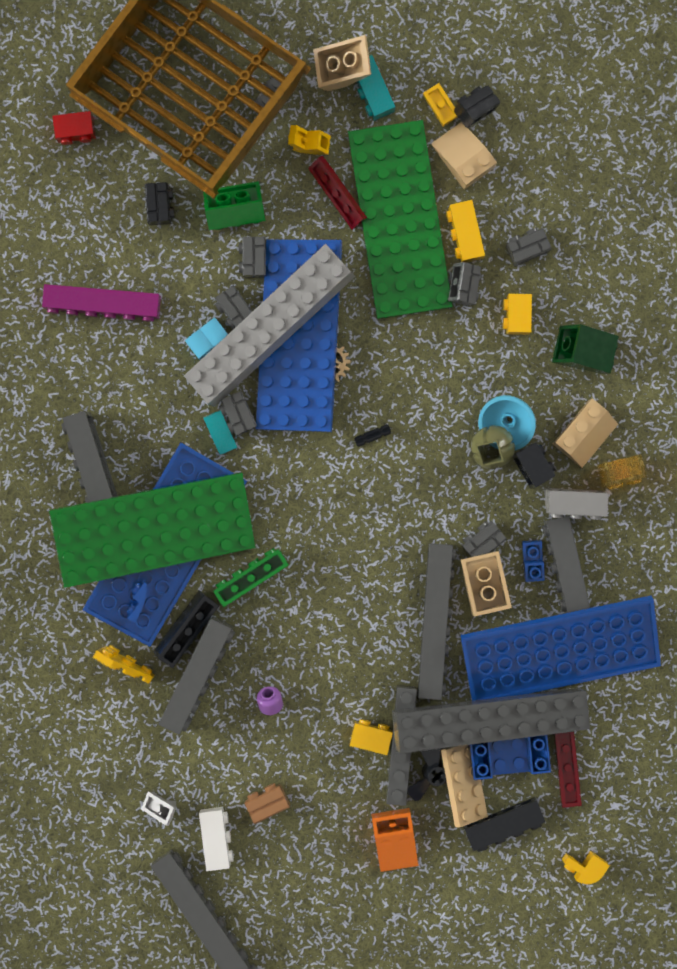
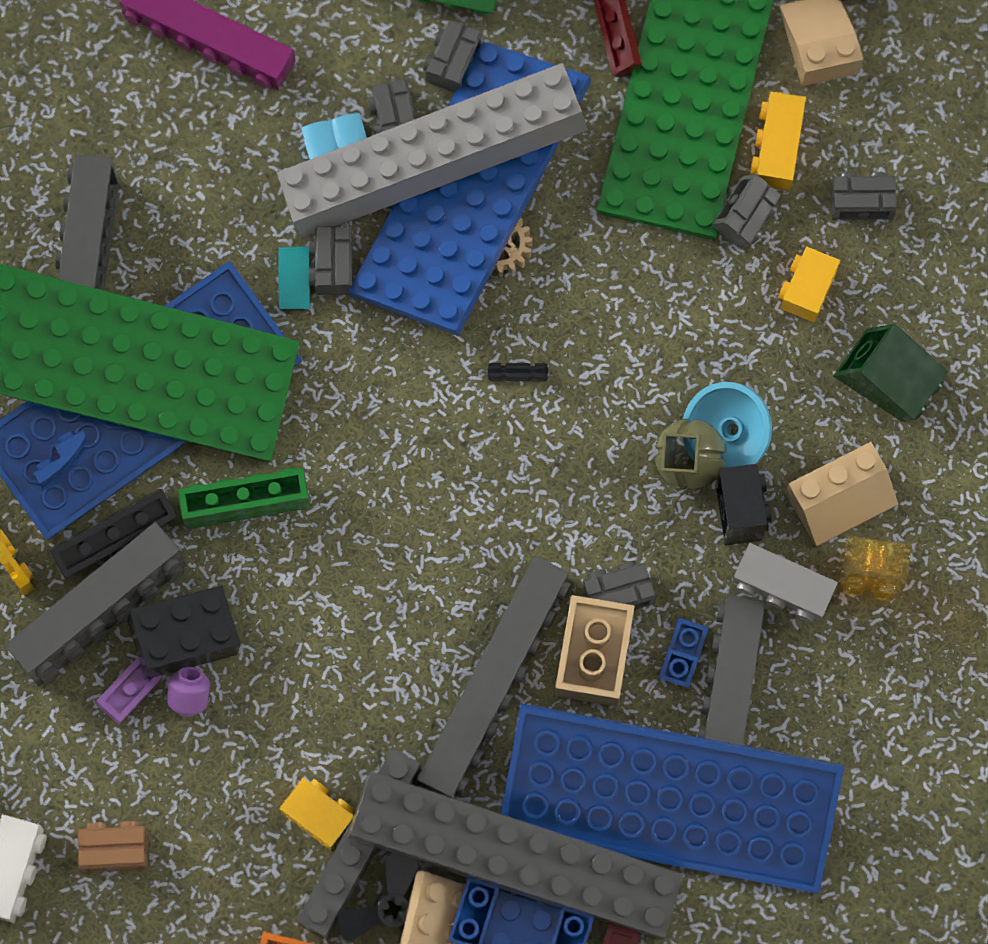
camera: 25 degrees right, 15 degrees down
(235, 712) = (126, 692): none -> medium lavender plate
(252, 669) = (183, 632): none -> black brick

